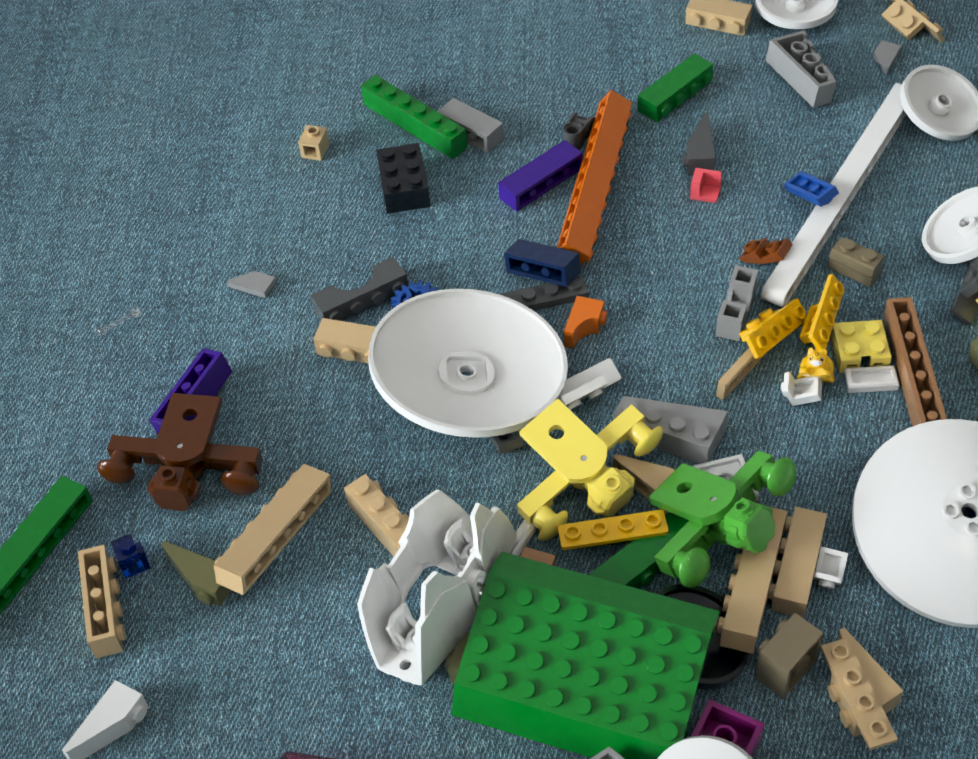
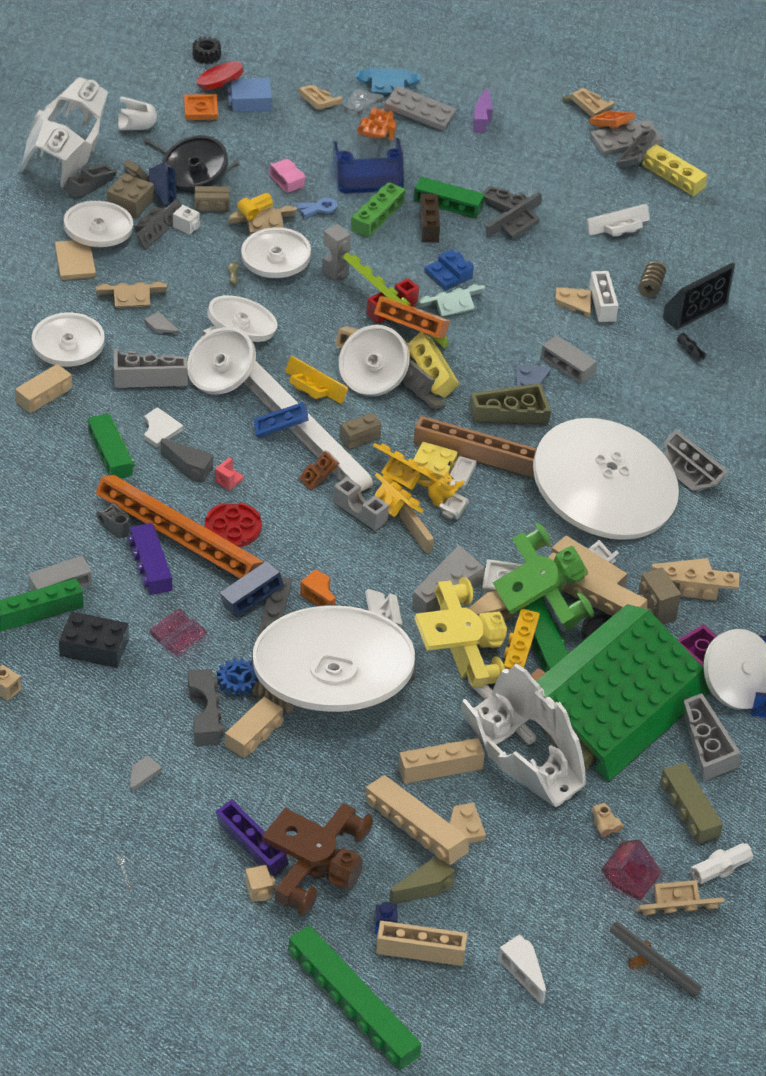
camera: 75 degrees left, 5 degrees down
(137, 424) = (259, 883): none -> tan brick
(307, 584) = (467, 821): none -> tan wing
(375, 730) = (605, 820): none -> tan plate
(457, 235) = (177, 631): none -> clear pink slope
(639, 219) = (235, 523): none -> red tile
(737, 114) = (160, 426): none -> white tile
(858, 109) = (221, 360): none -> white dish
(899, 196) = (314, 382): none -> yellow bracket

